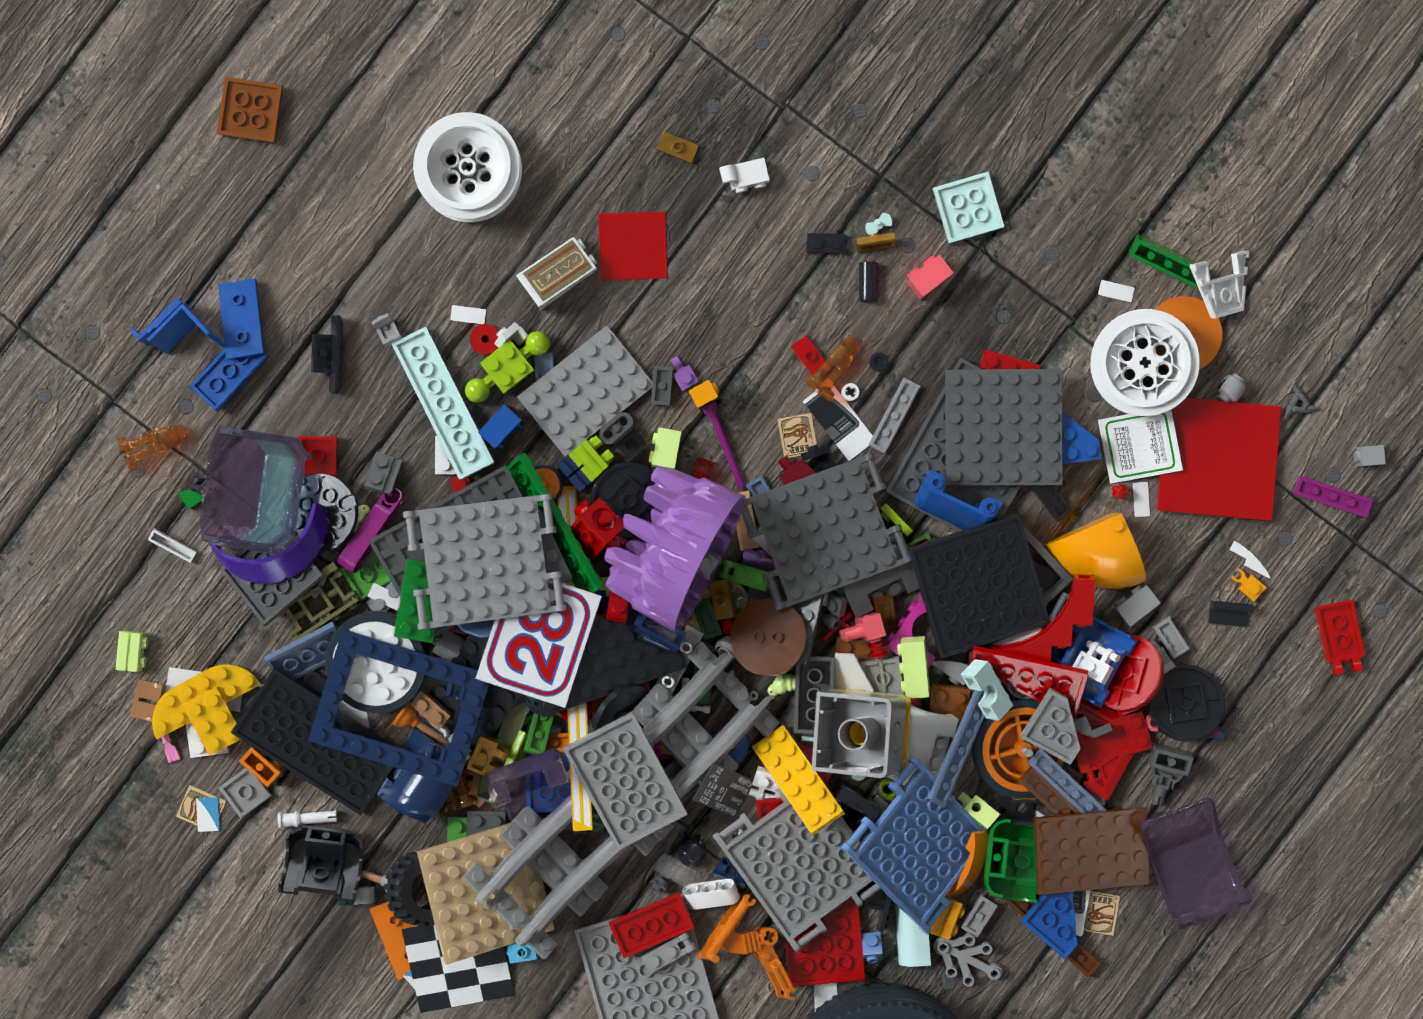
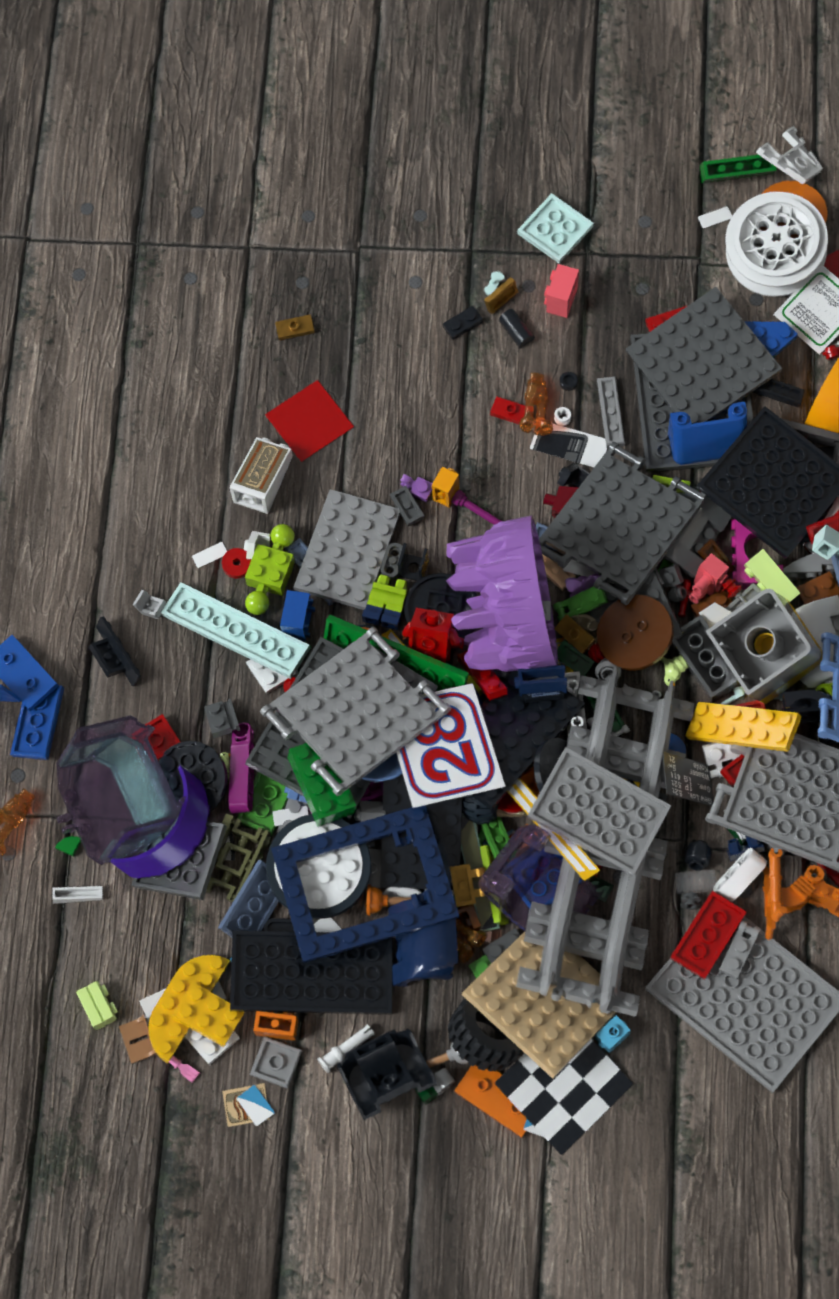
camera: 25 degrees left, 20 degrees down
(431, 709) = (392, 878): medium nougat plate -> none
(447, 139) = (133, 409): white wheel -> none
(666, 448) = (437, 545): yellowish green hinge -> none
(745, 175) = (363, 311): white hinge -> none
(796, 434) = (542, 475): sticker -> none

